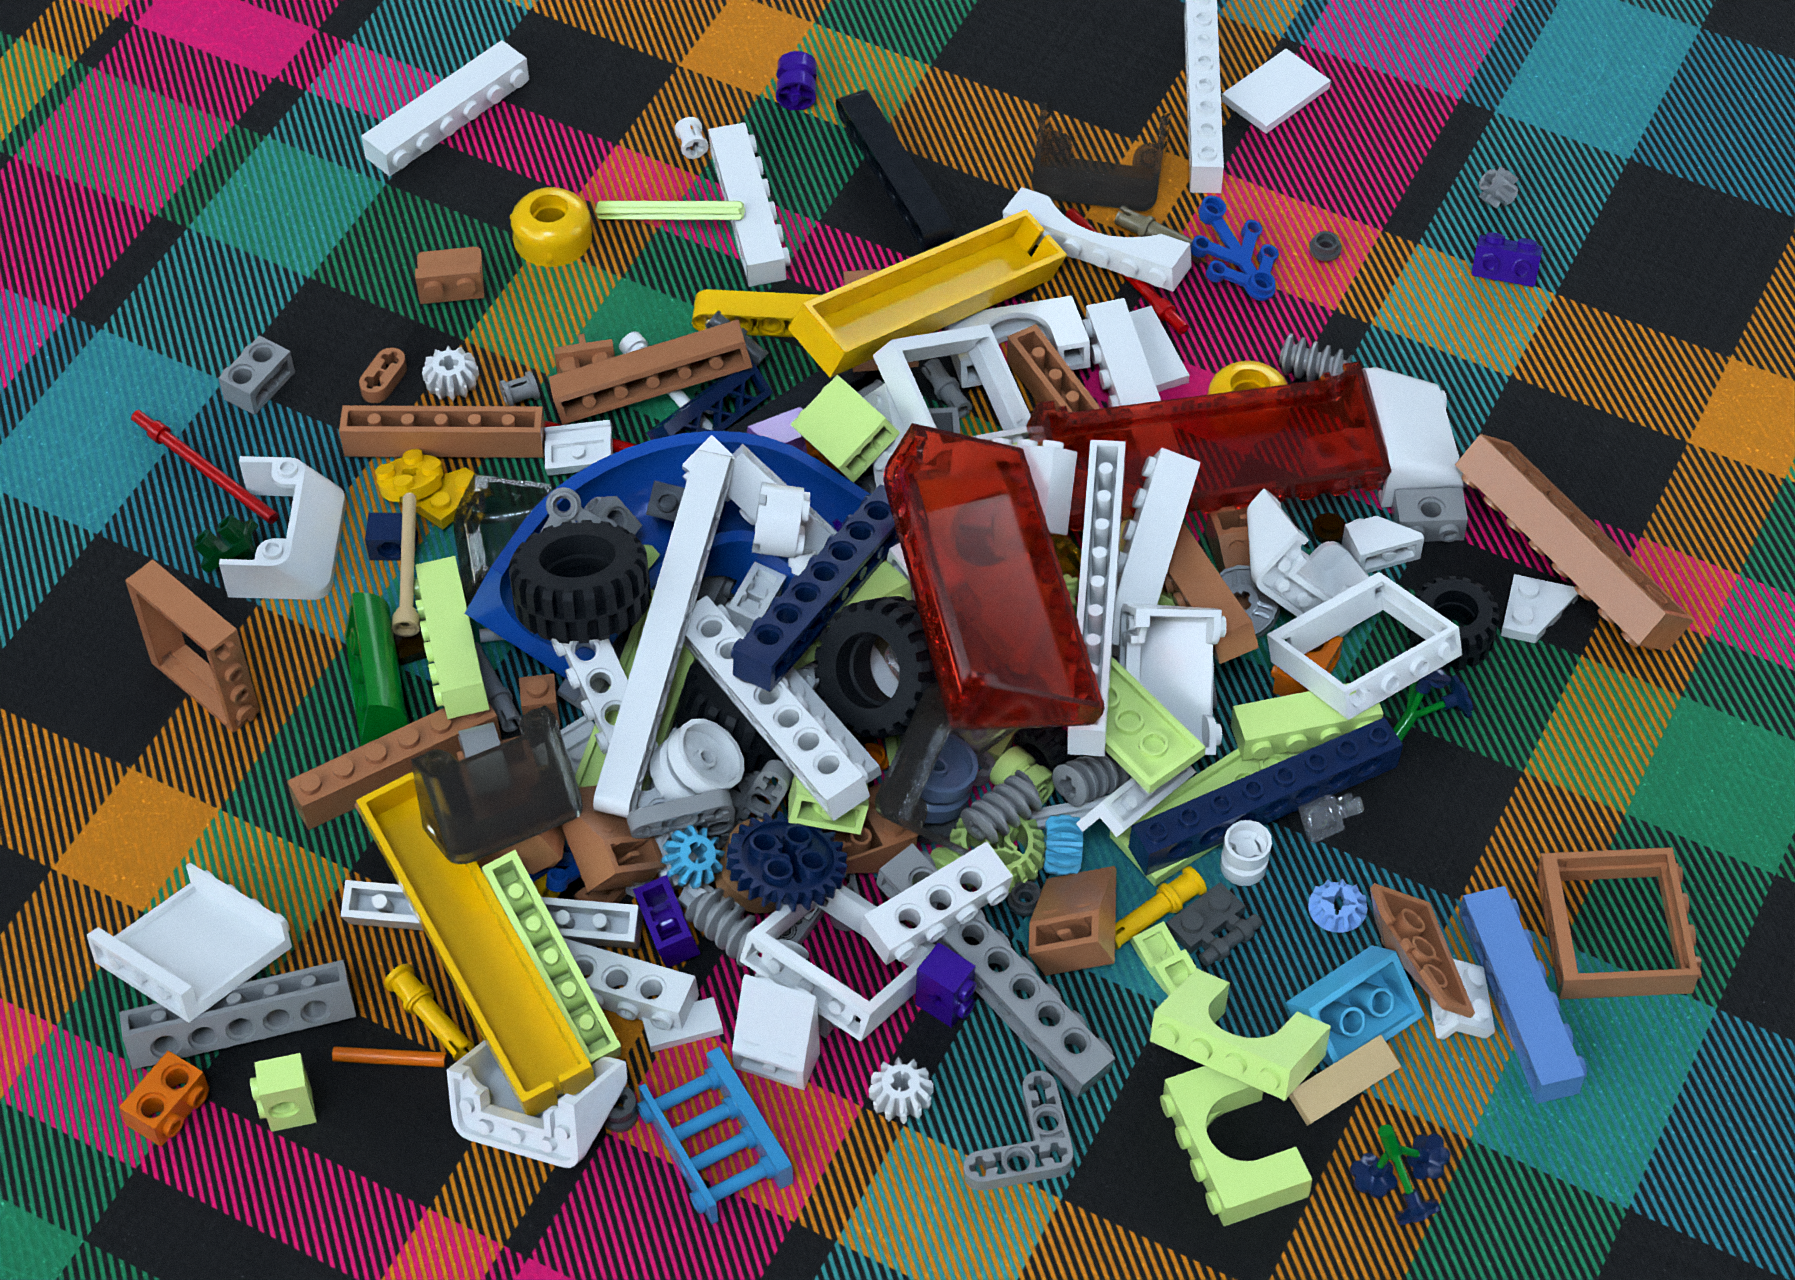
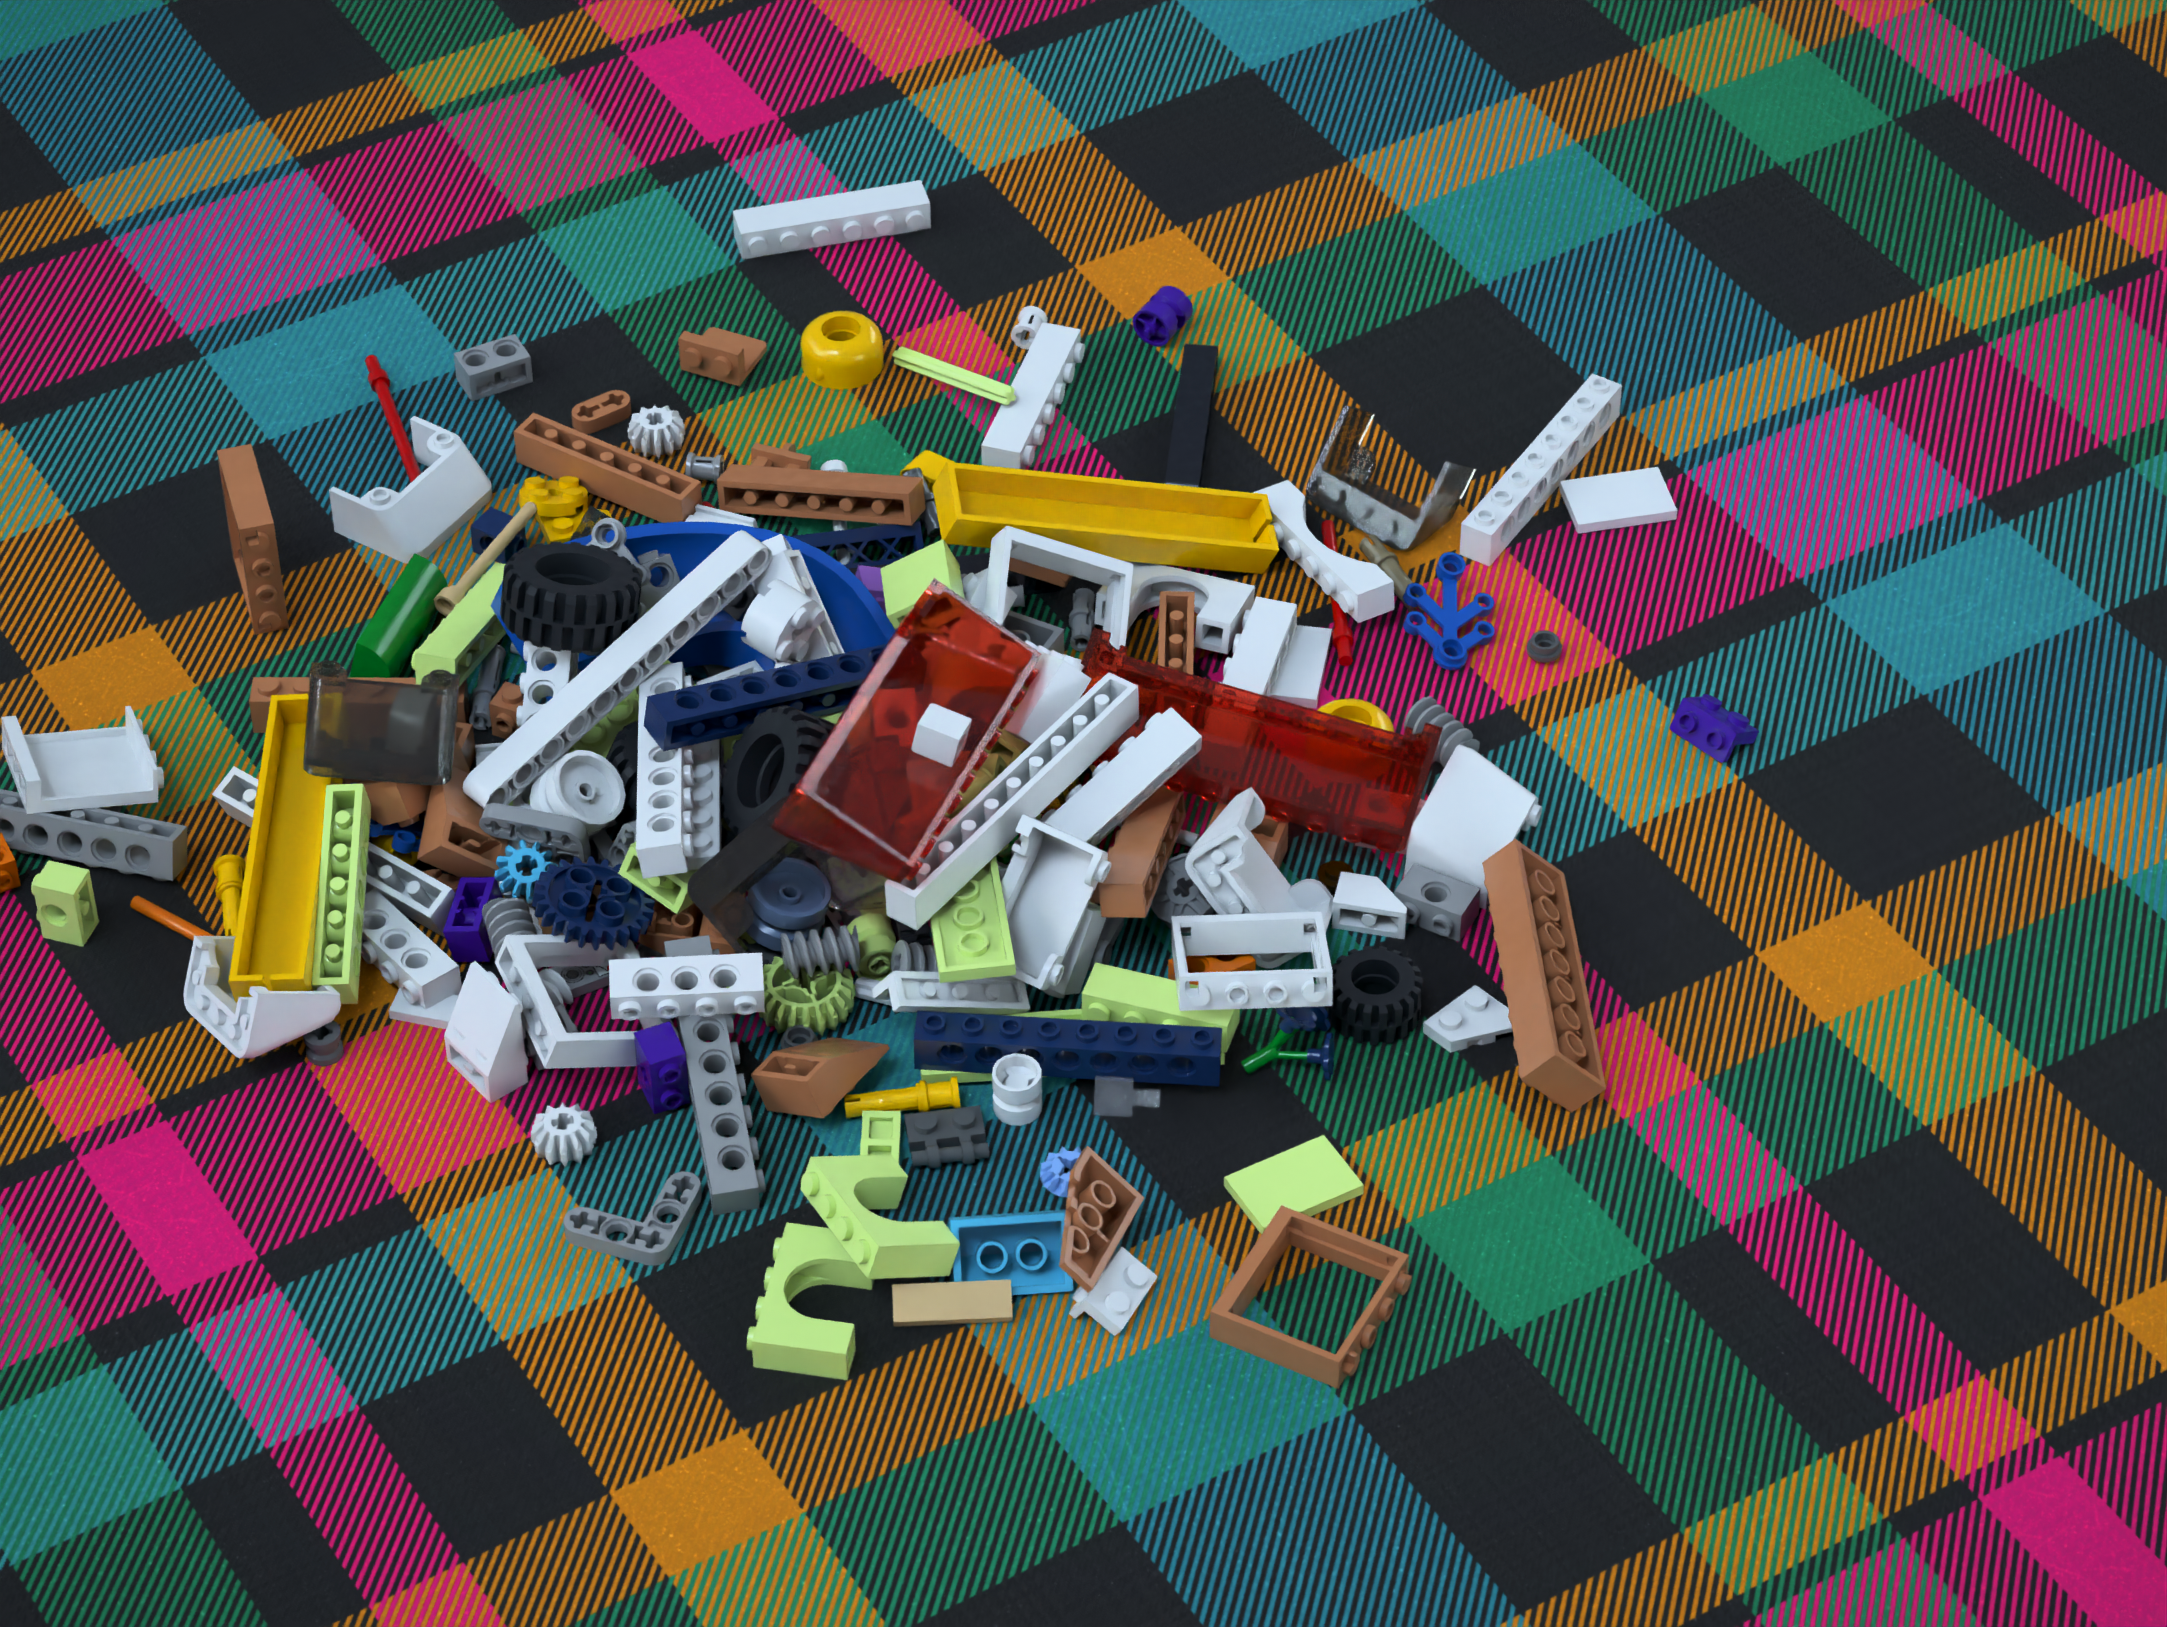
camera: 30 degrees right, 10 degrees down
(234, 543) = (364, 473): dark green hips -> none
(735, 1104) = (414, 1111): dark azure fence -> none
(1014, 566) = (941, 734): none -> white panel
(1063, 845) = (858, 1013): medium azure gear -> none
(1376, 1174) = (918, 1389): dark blue plant -> none
(1498, 187) = (1756, 662): light grey gear -> none
(1517, 826) = (1301, 1178): none -> yellowish green tile
(1522, 995) = (1170, 1311): medium blue brick -> none

